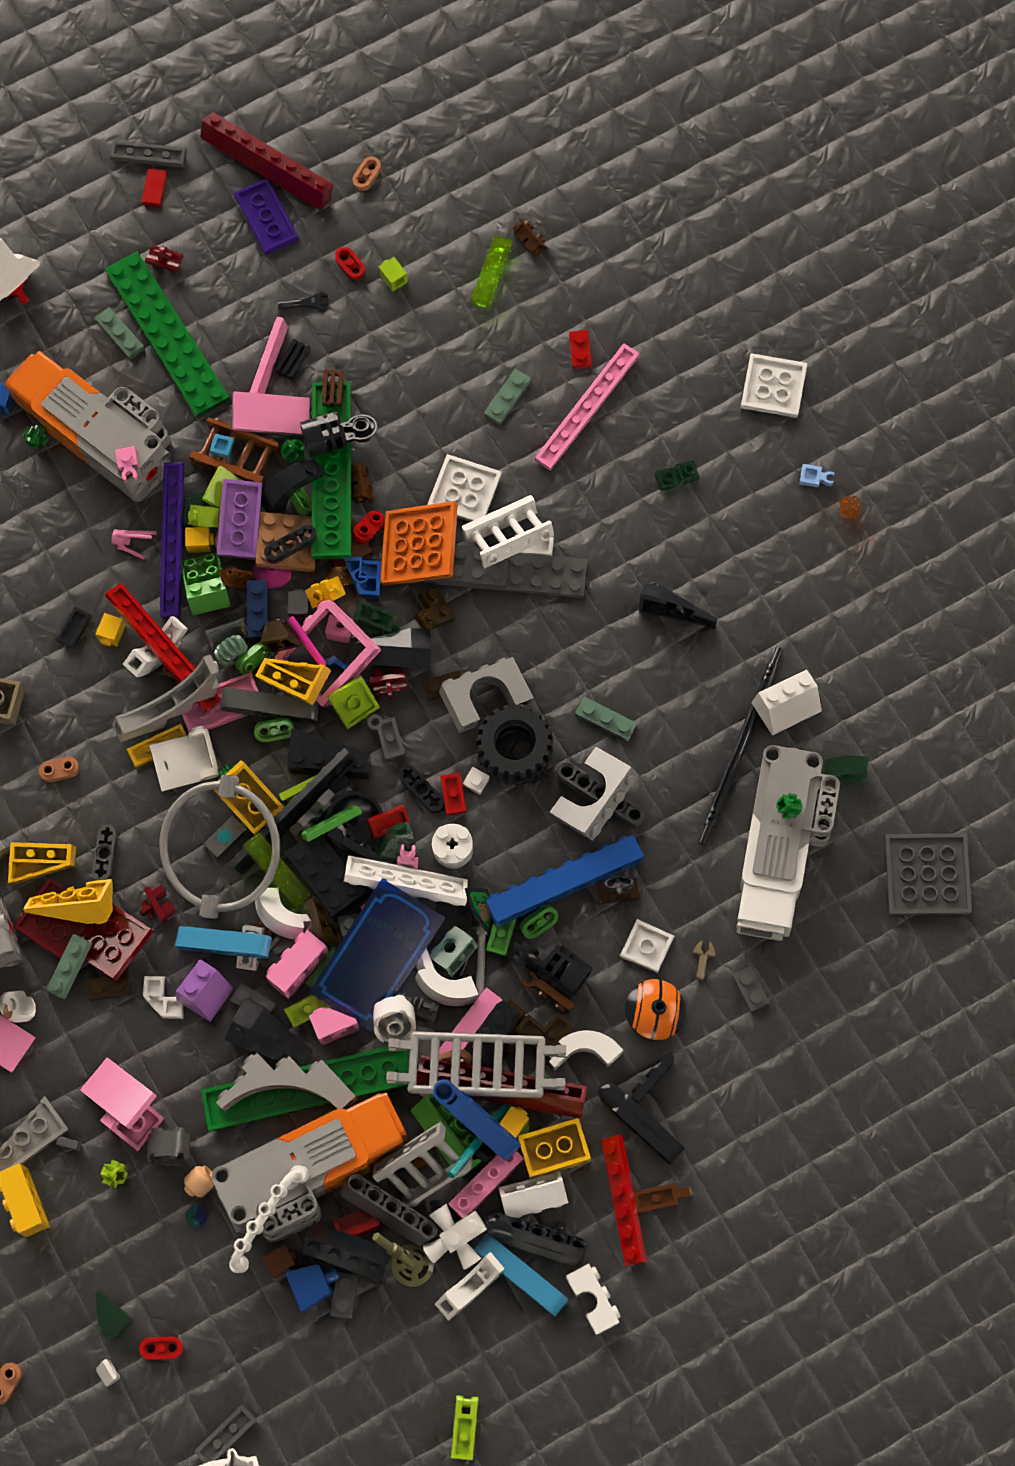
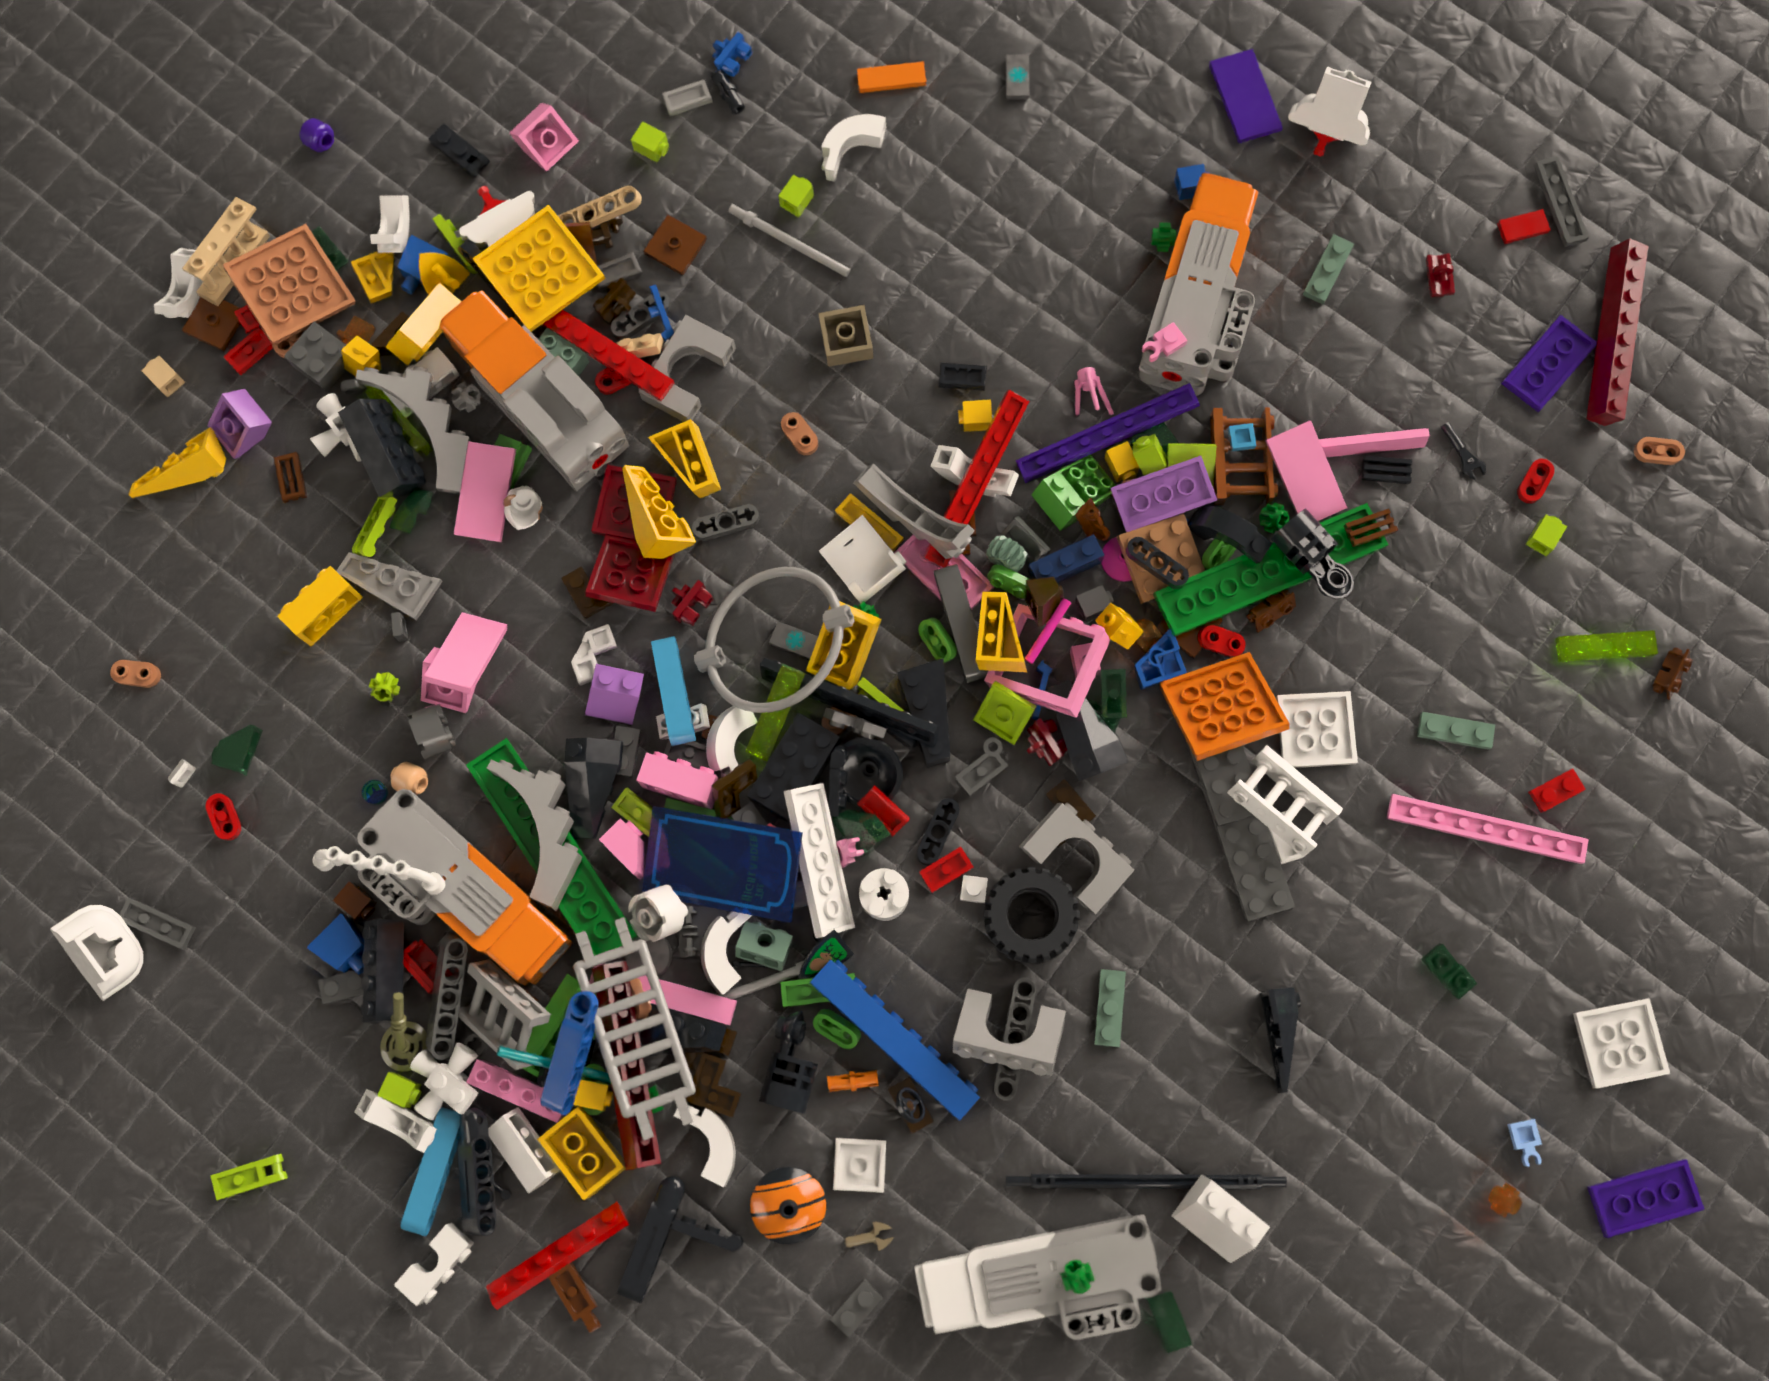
camera: 70 degrees right, 5 degrees up
(69, 966) = (585, 541): sand green plate -> none
(167, 334) = (1351, 320): green plate -> none
(331, 823) = (848, 748): bright green tile -> none
(436, 612) = (1152, 761): dark brown plate -> none
(446, 1277) = (400, 1090): none -> lime brick
(547, 992) = (759, 1071): reddish brown plate -> none
(582, 926) = (852, 1081): none -> orange pin
(884, 417) = (1645, 1198): none -> dark purple tile

